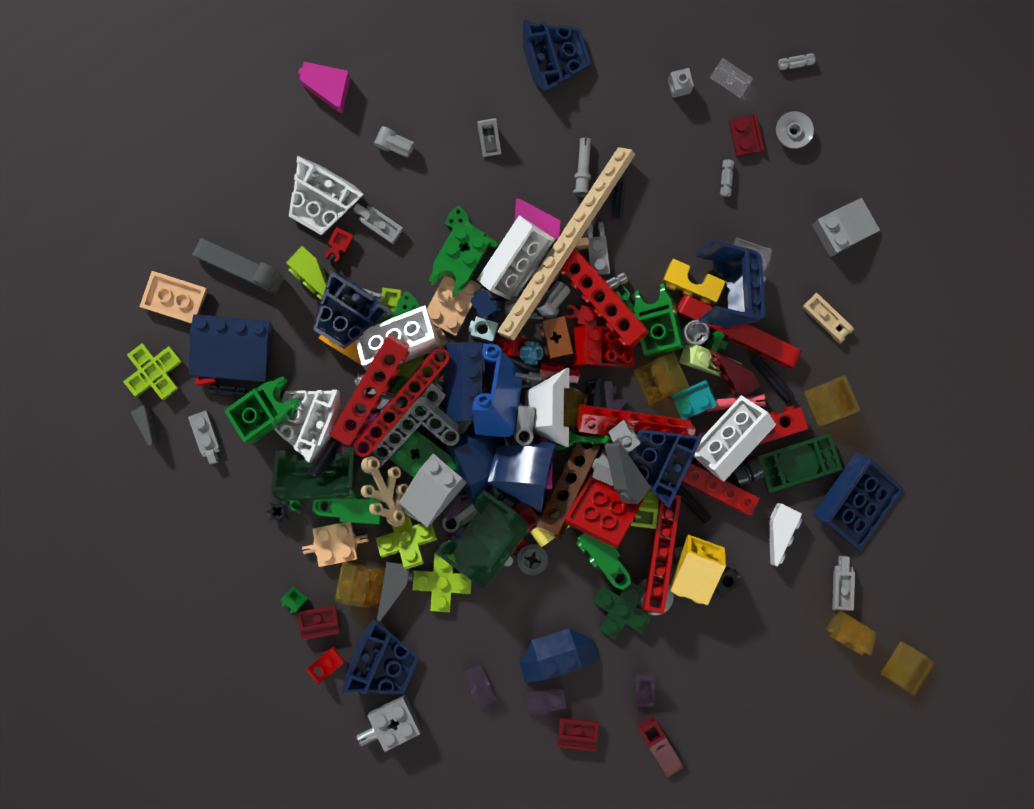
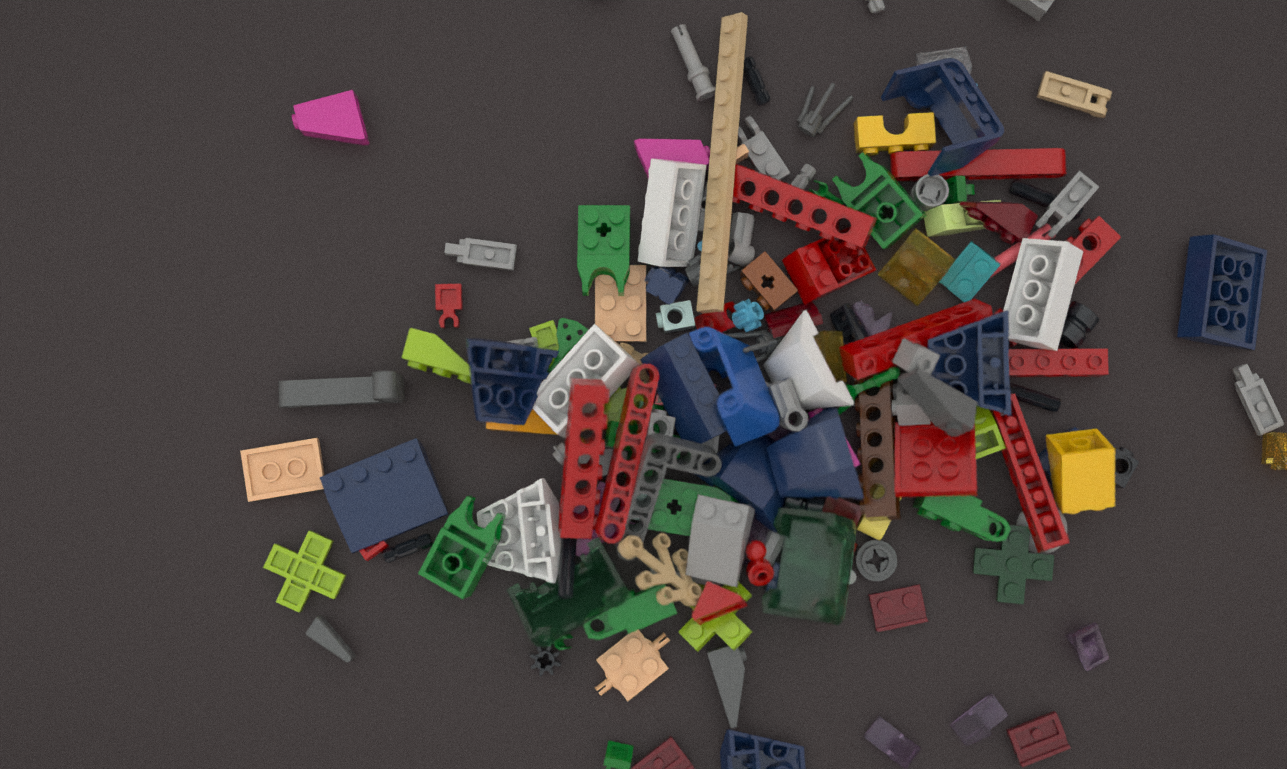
camera: 25 degrees left, 0 degrees up
(205, 436) = (408, 615): light grey hinge -> none
(320, 196) = (397, 257): white wedge -> none
(360, 585) = (689, 697): clear yellow slope -> none
(389, 140) = (444, 148): light grey piece -> none
(408, 531) = (715, 603): none -> red slope
(441, 583) = (783, 644): lime plate -> none
(452, 511) = (756, 552): none -> red plate
(465, 222) = (579, 193): green piece -> none
(489, 137) = (562, 84): light grey slope -> none
(530, 598) = (897, 608): none -> dark red plate
(557, 655) = (965, 659): dark blue wedge -> none
(585, 315) = (788, 239): red plate -> none
(642, 245) = (811, 122): none -> dark grey plant
(659, 746) = (1141, 702): dark red slope -> none
(781, 528) = (1150, 371): white slope -> none
(785, 387) = (1069, 202): none -> light grey hinge
(799, 462) = (1131, 282): dark green slope -> none
(832, 400) = (1131, 189): clear yellow slope -> none

